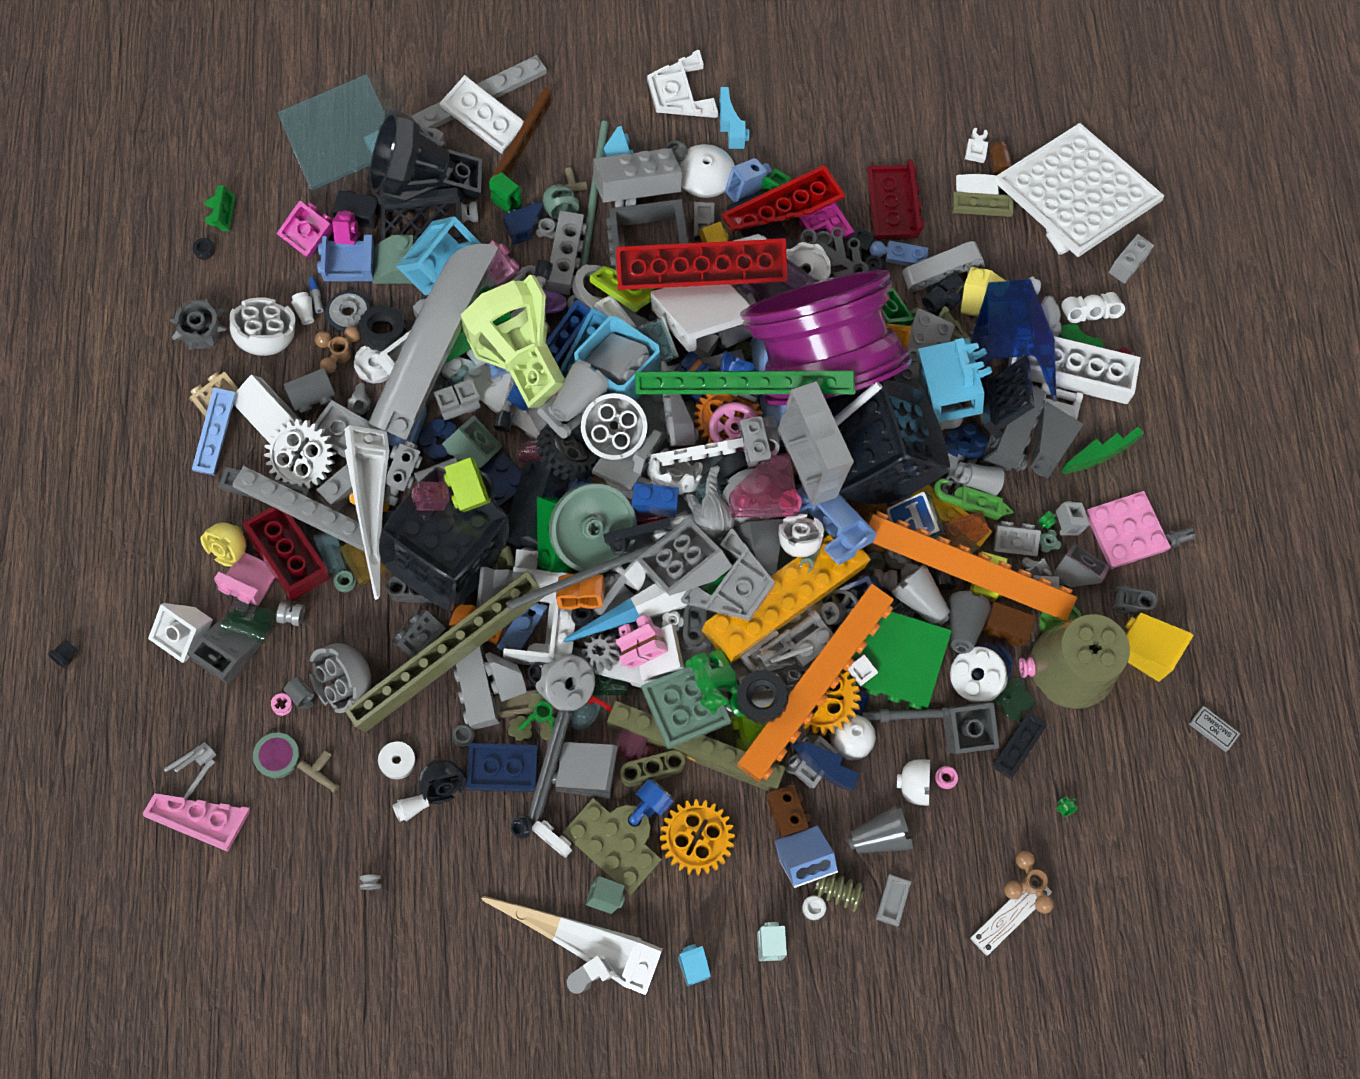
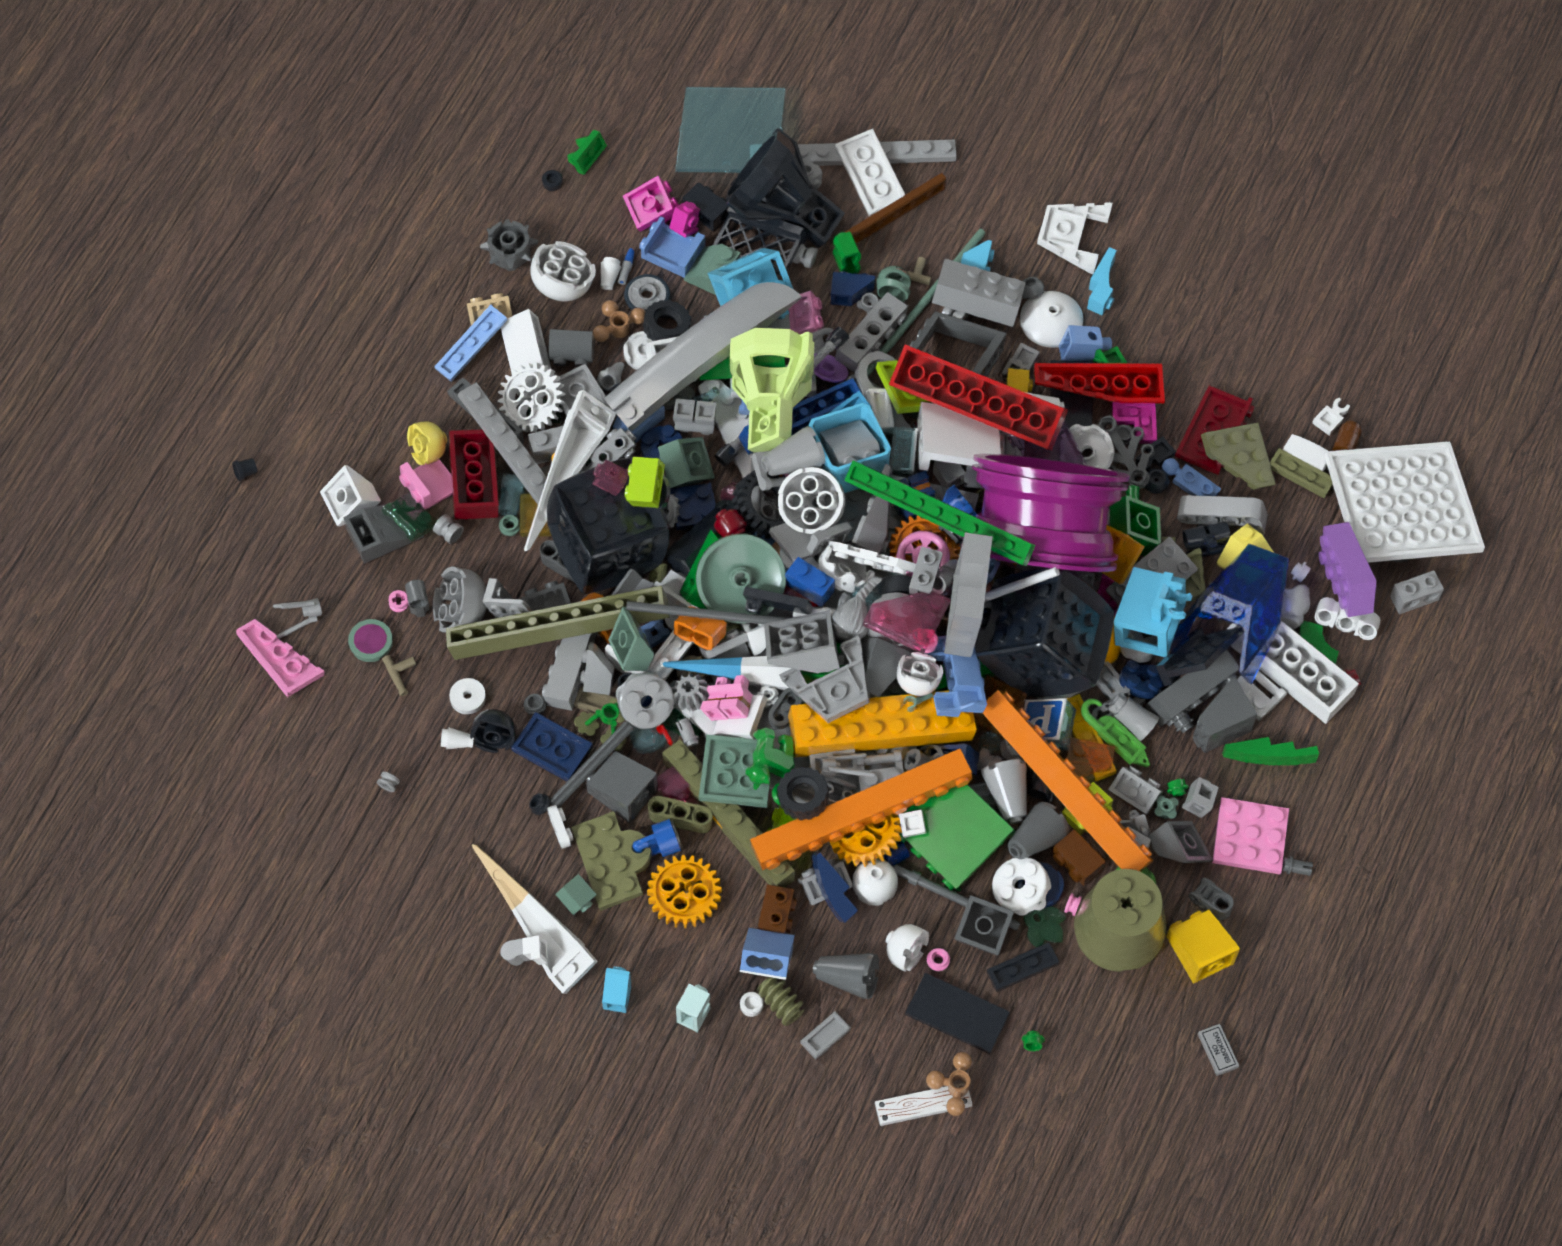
camera: 35 degrees right, 5 degrees down
(382, 660) = (500, 601): none -> light grey bracket
(526, 638) = (630, 643): none -> sand green slope
(552, 483) = (729, 523): none -> dark red head
(582, 621) = (688, 646): black plate -> none
(618, 691) = (687, 732): none -> light grey pin
(931, 209) = (1241, 453): none -> olive plate
(990, 816) = (957, 1013): none -> black tile
(1076, 265) = (1347, 569): none -> medium lavender piece

